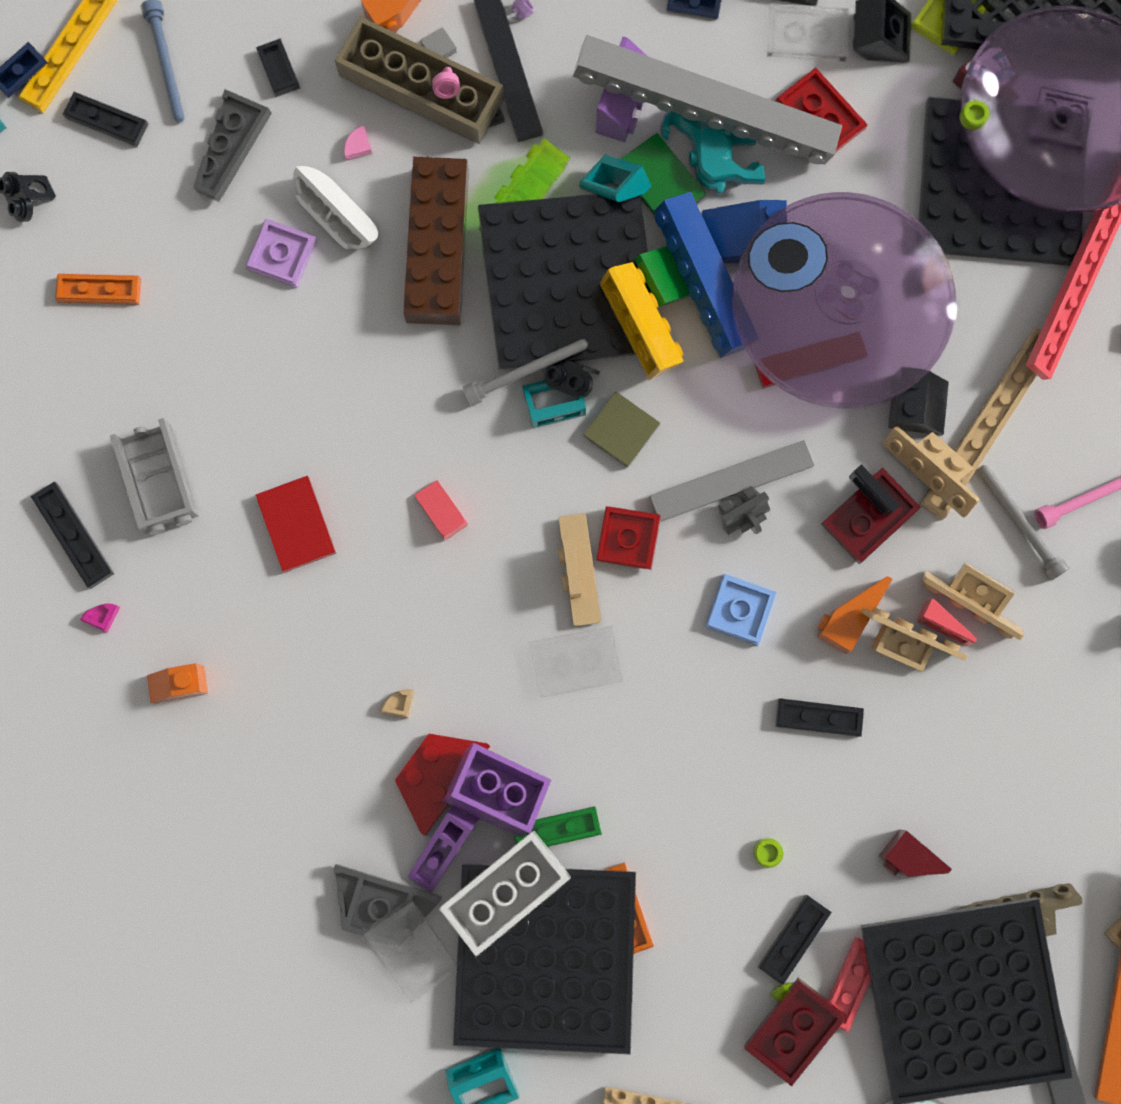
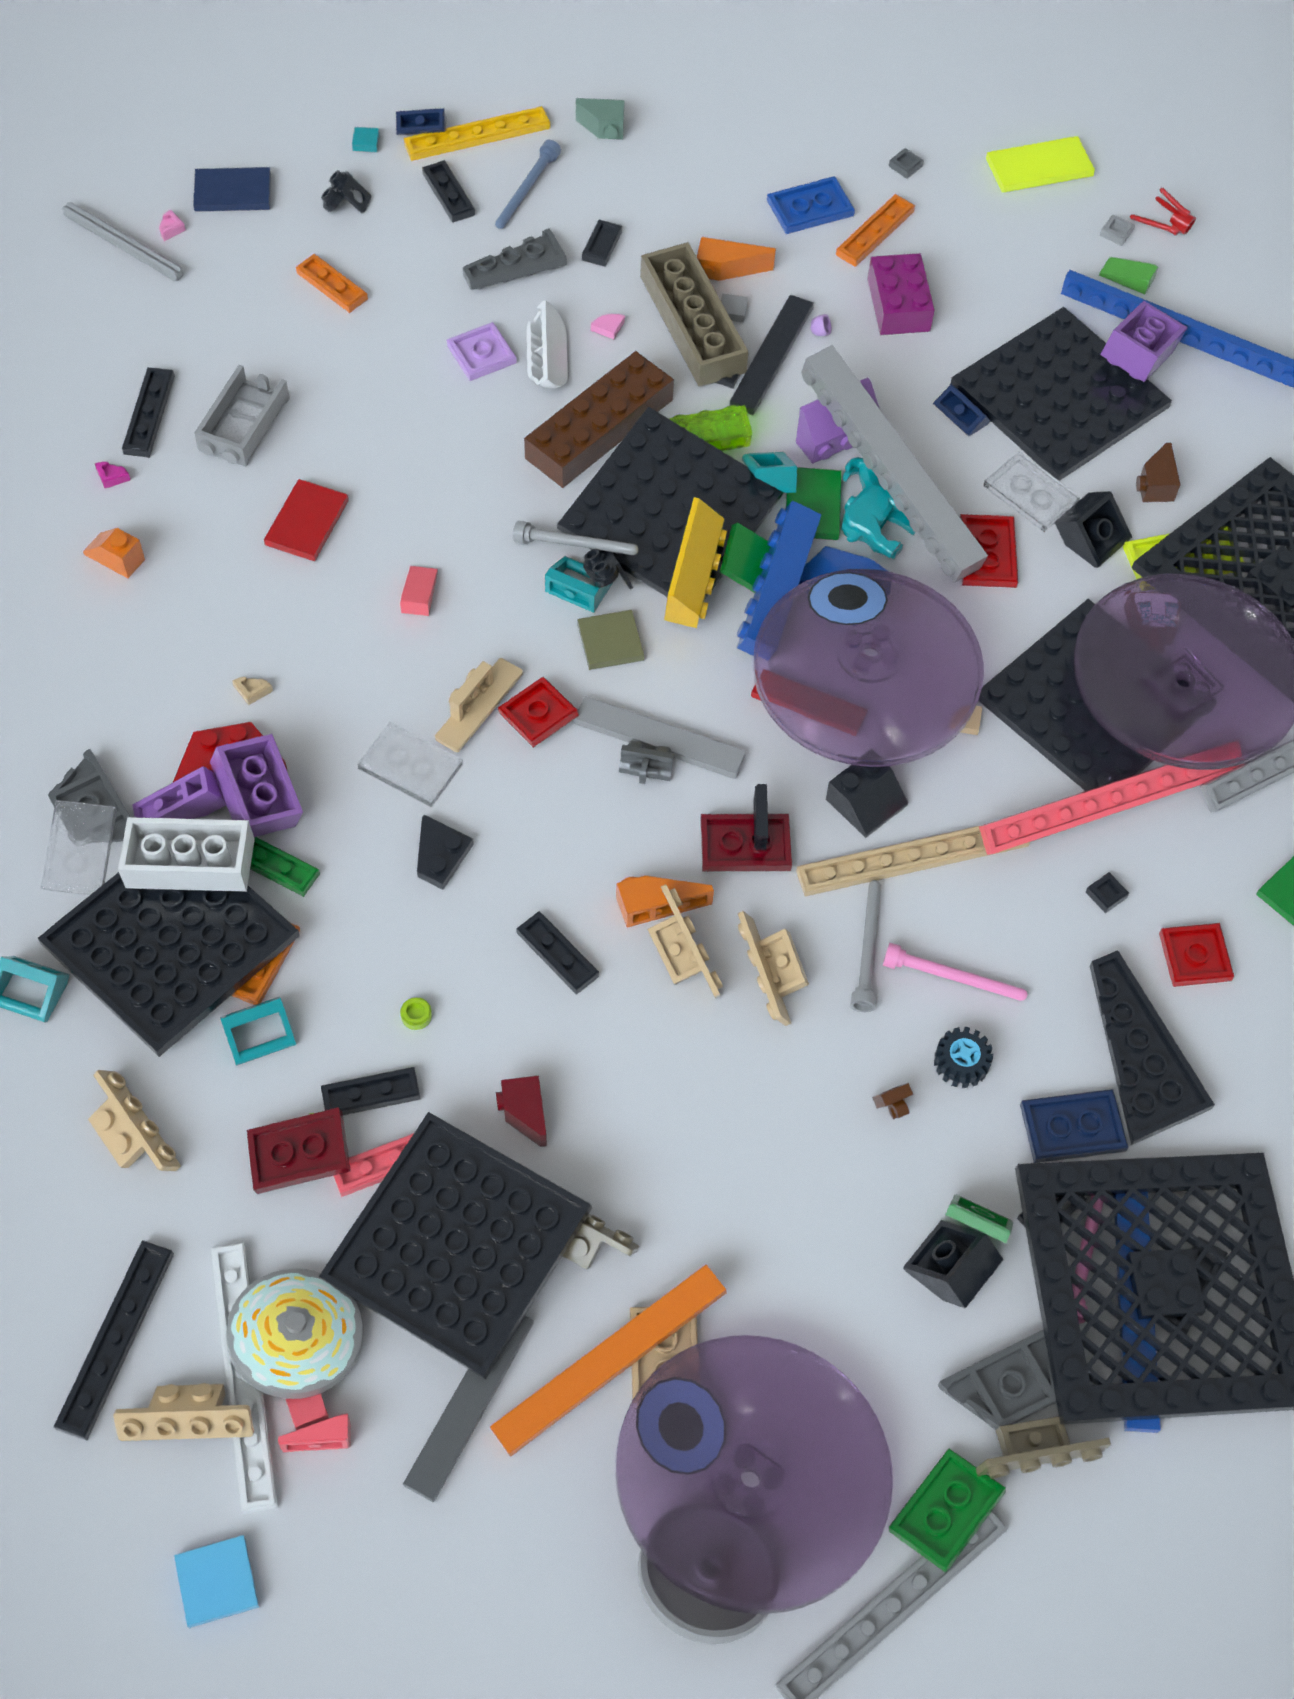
camera: 40 degrees right, 20 degrees down
(446, 84) = (703, 318): bright pink tile -> none
(662, 961) = (253, 1013): none -> teal tile
(665, 713) = (440, 851): none -> black wing
(740, 609) = (574, 828): light blue tile -> none
(936, 466) = (833, 844): tan bracket -> none
(940, 620) = (724, 956): coral slope -> none
(974, 115) = (1098, 614): lime tile -> none

